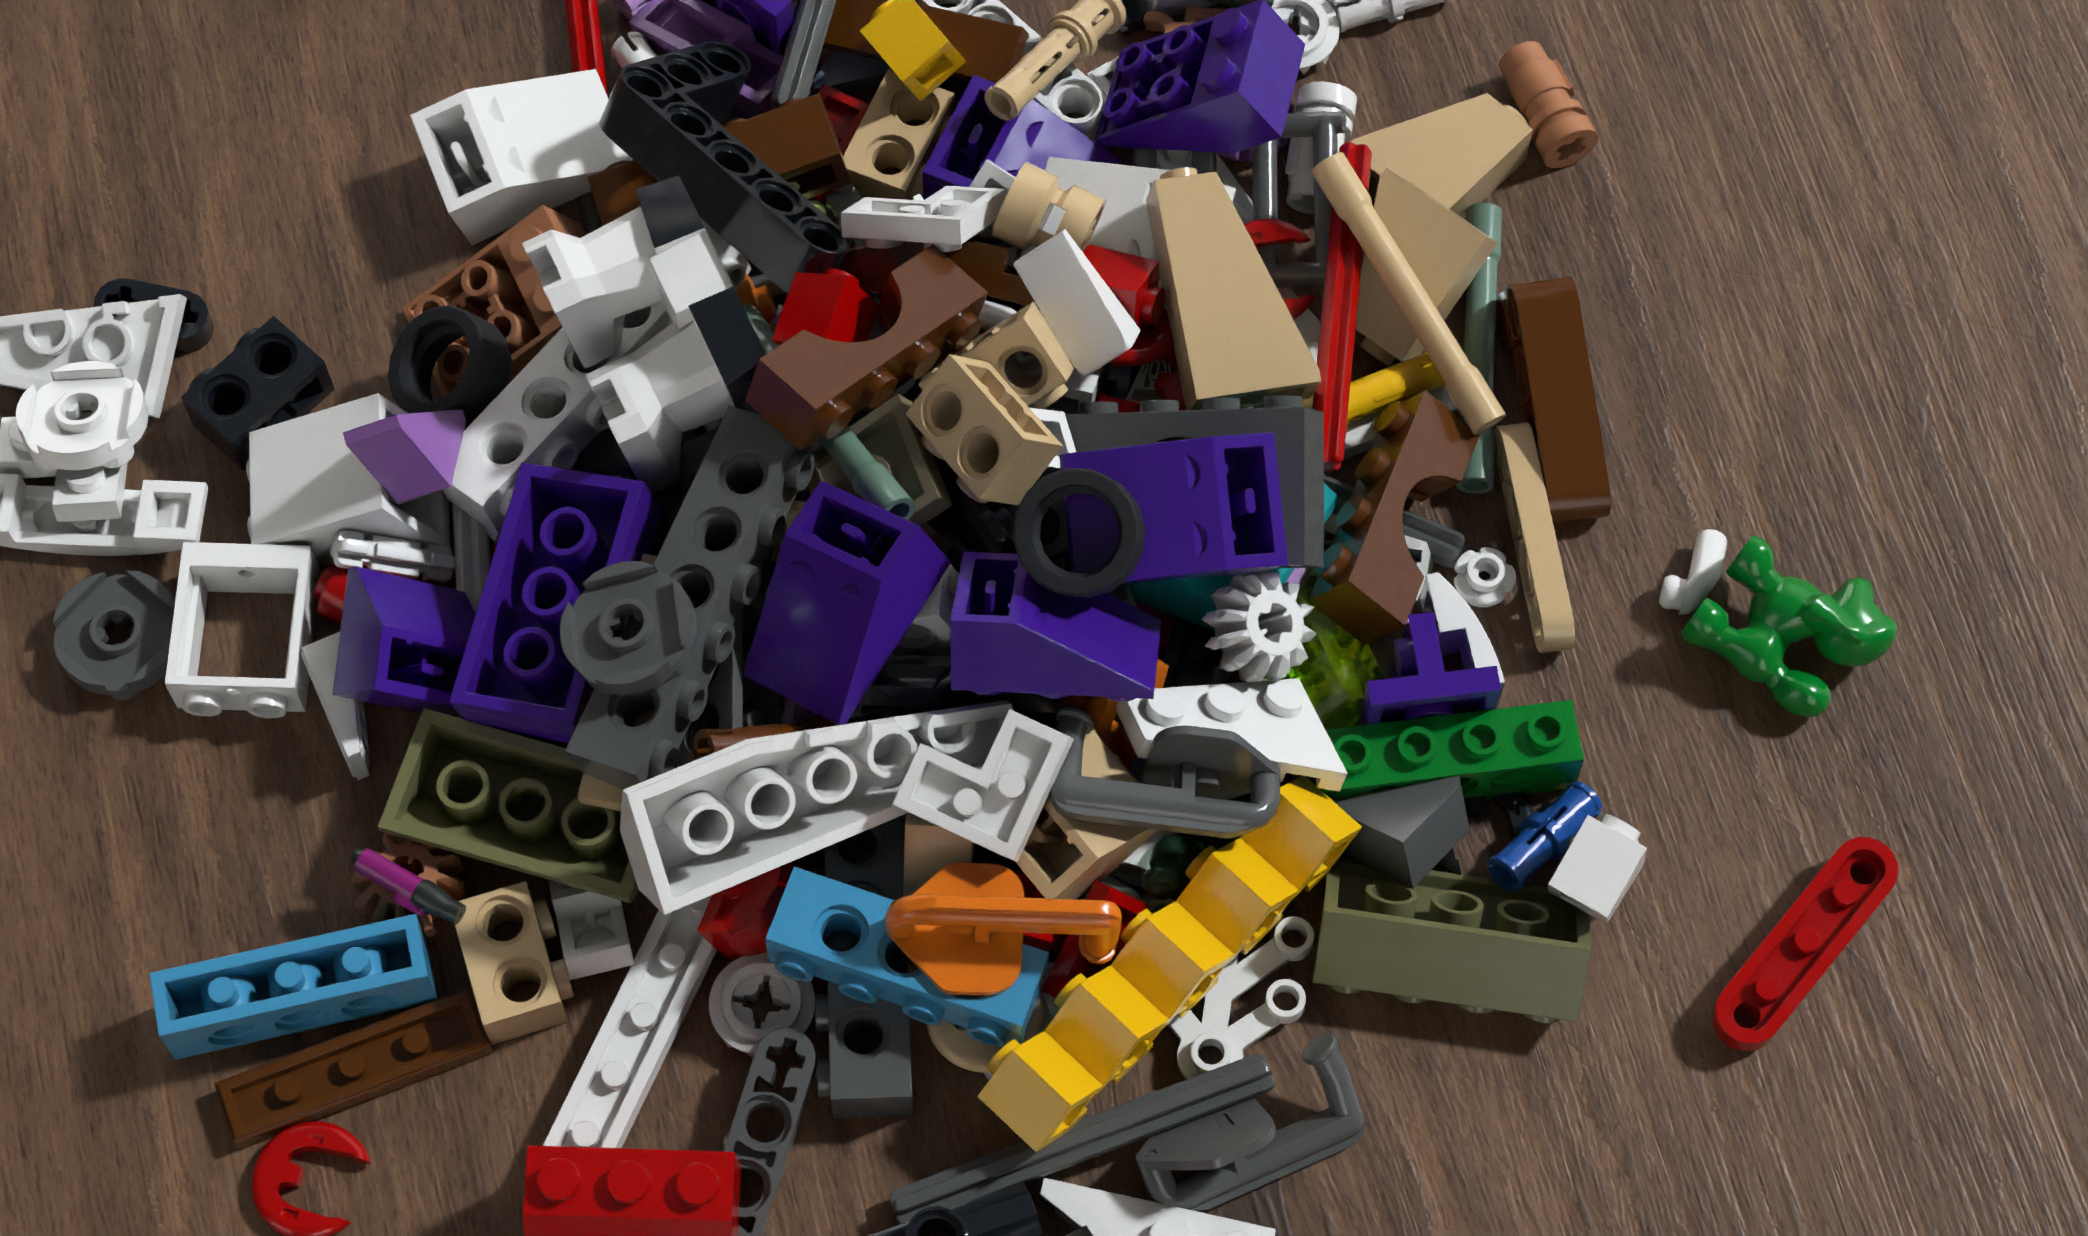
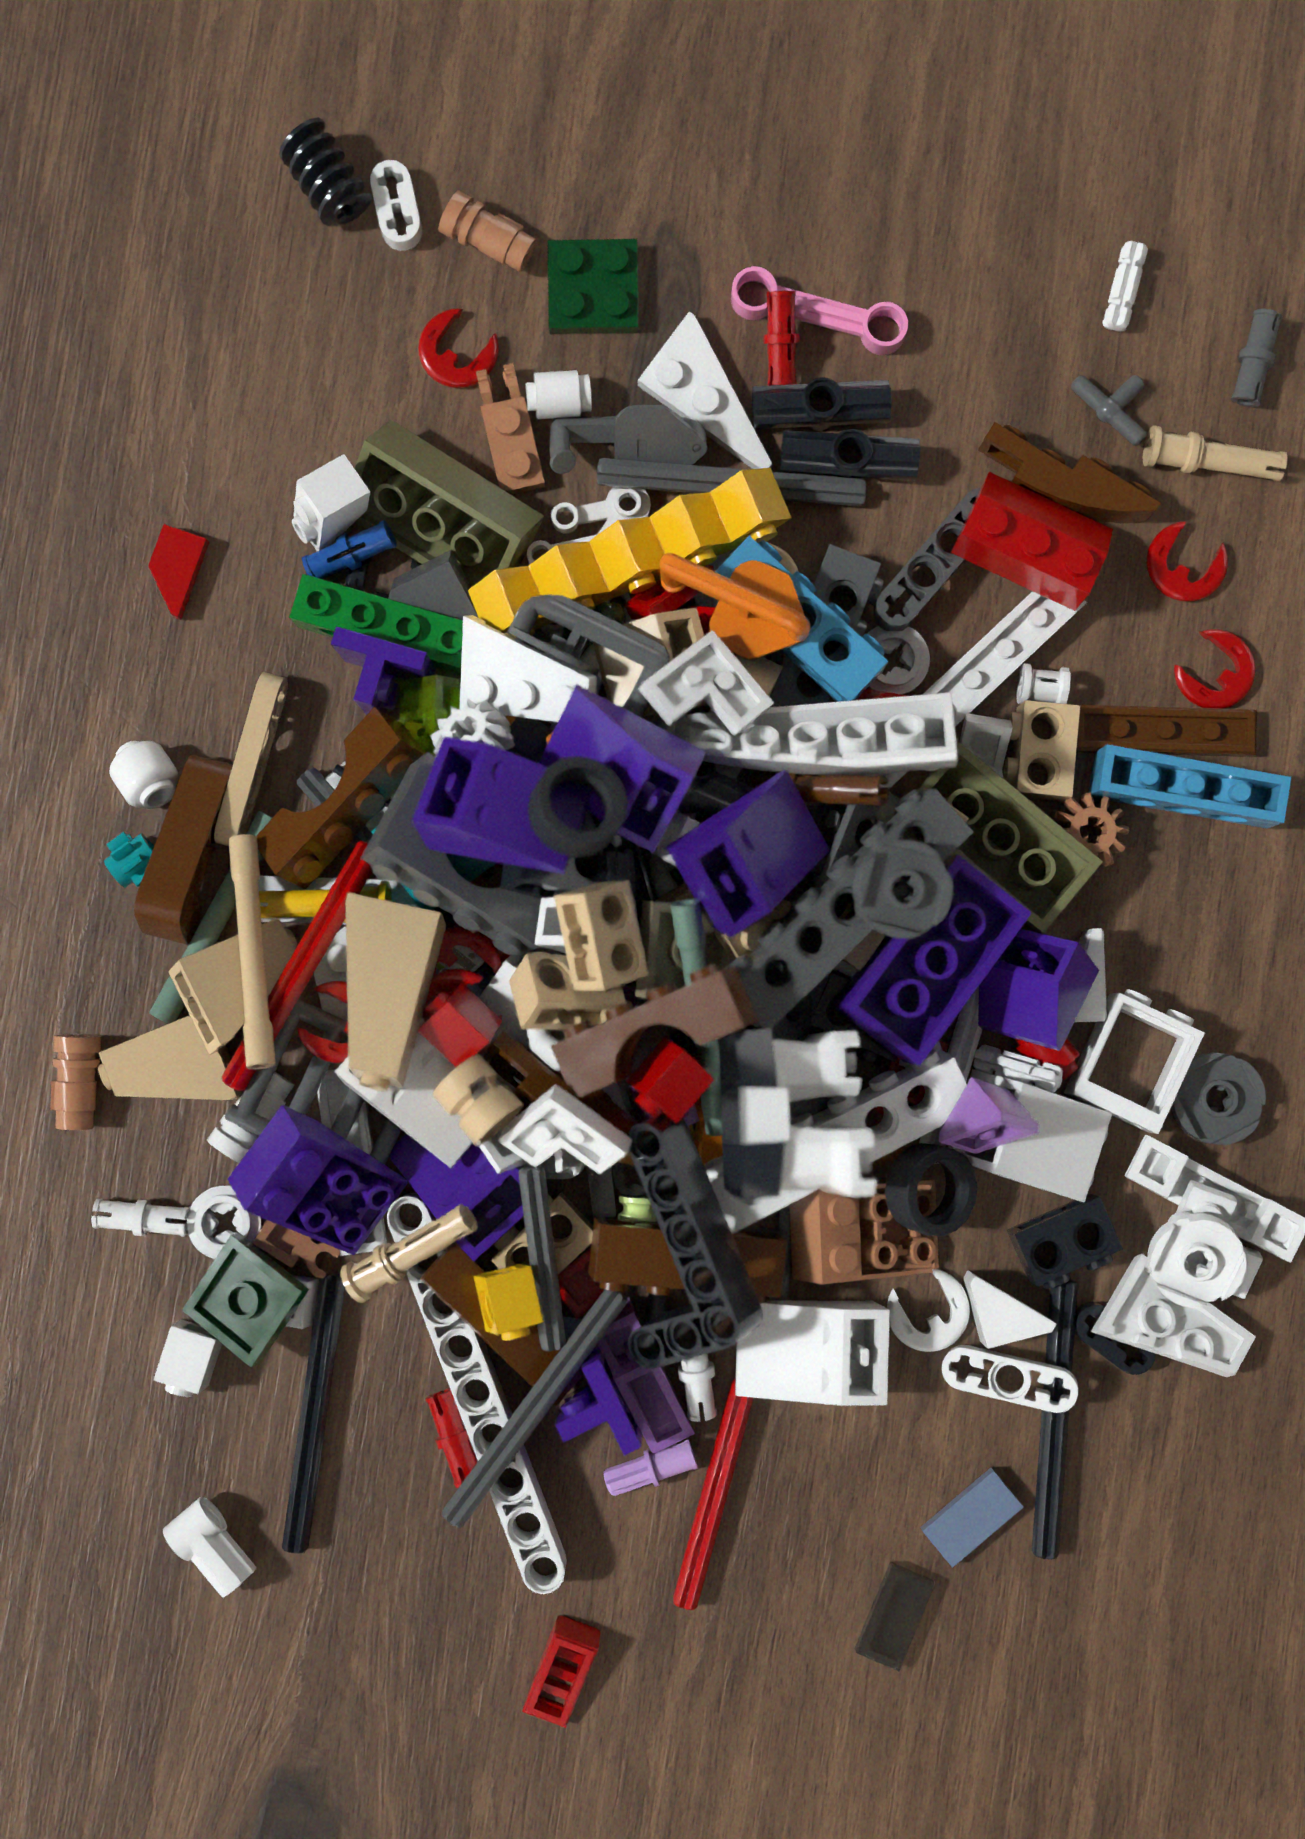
camera: 155 degrees left, 20 degrees up
(193, 199) = (1054, 1426): none -> black axle
(250, 235) = (973, 1380): none -> white beam
(257, 65) = (971, 1517): none -> sand blue tile
(301, 284) = (1000, 1316): none -> white slope
(374, 243) = (940, 1333): none -> white head
(407, 888) = (1097, 812): piece -> none
(560, 1057) = (1043, 685): none -> white bush
(893, 106) = (542, 1256): none -> dark grey axle
(1077, 303) = (491, 1011): white slope -> none
(1373, 1160) = (559, 394): none -> white brick
(1414, 1087) = (510, 436): none -> nougat hinge
(1458, 625) = (336, 718): white slope -> none
(1478, 591) = (309, 749): white plate -> none
(1548, 1140) = (442, 367): none -> red head
(1617, 360) = (128, 858): none -> teal gear
(1655, 464) = (144, 774): none -> white head
(1702, 577) = (155, 684): white arm -> none
(1757, 734) = (176, 566): none -> red tile
(1785, 610) = (116, 630): green animal -> none
(1805, 943) = (220, 415): red plate -> none

